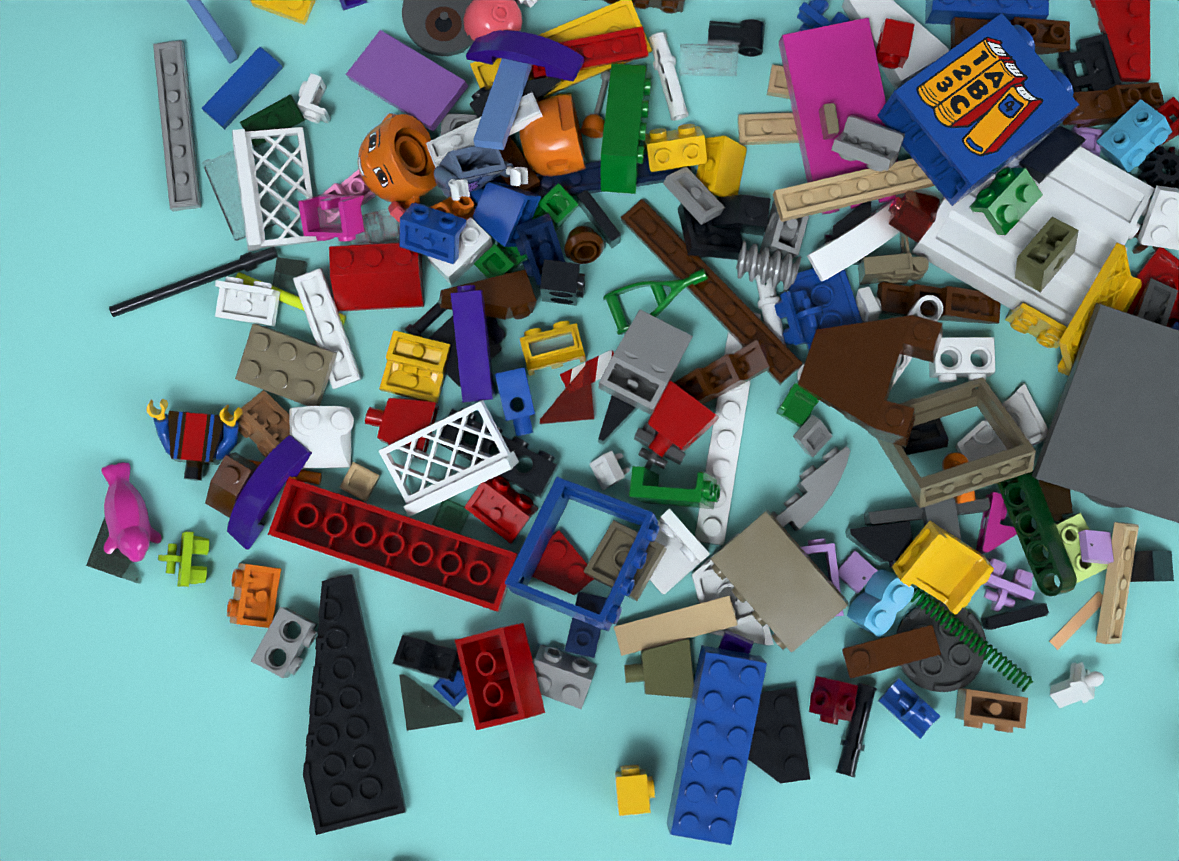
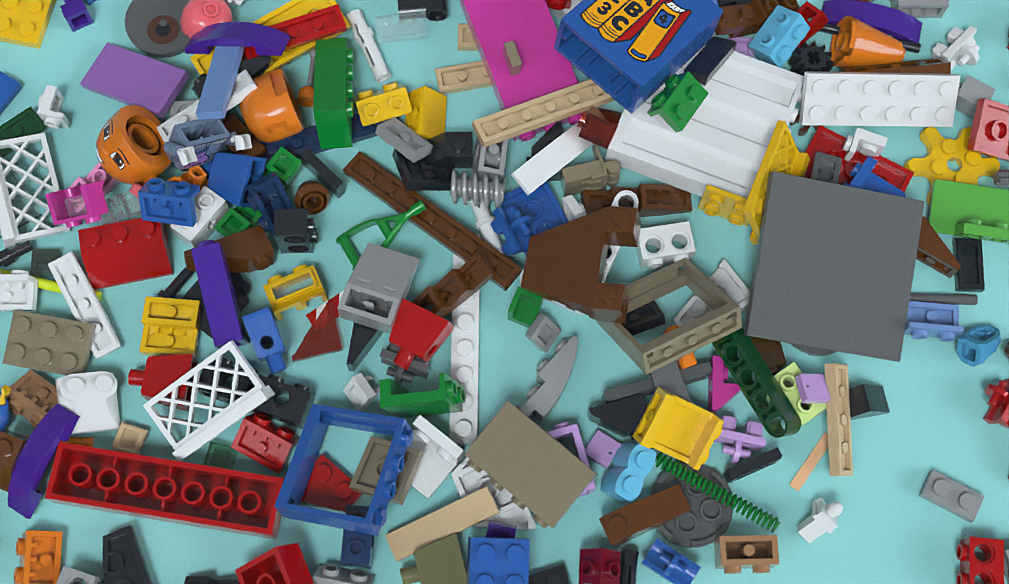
camera: 15 degrees left, 10 degrees down
(869, 143) = (549, 70): light grey bracket -> none
(1046, 254) = (719, 139): olive brick -> none

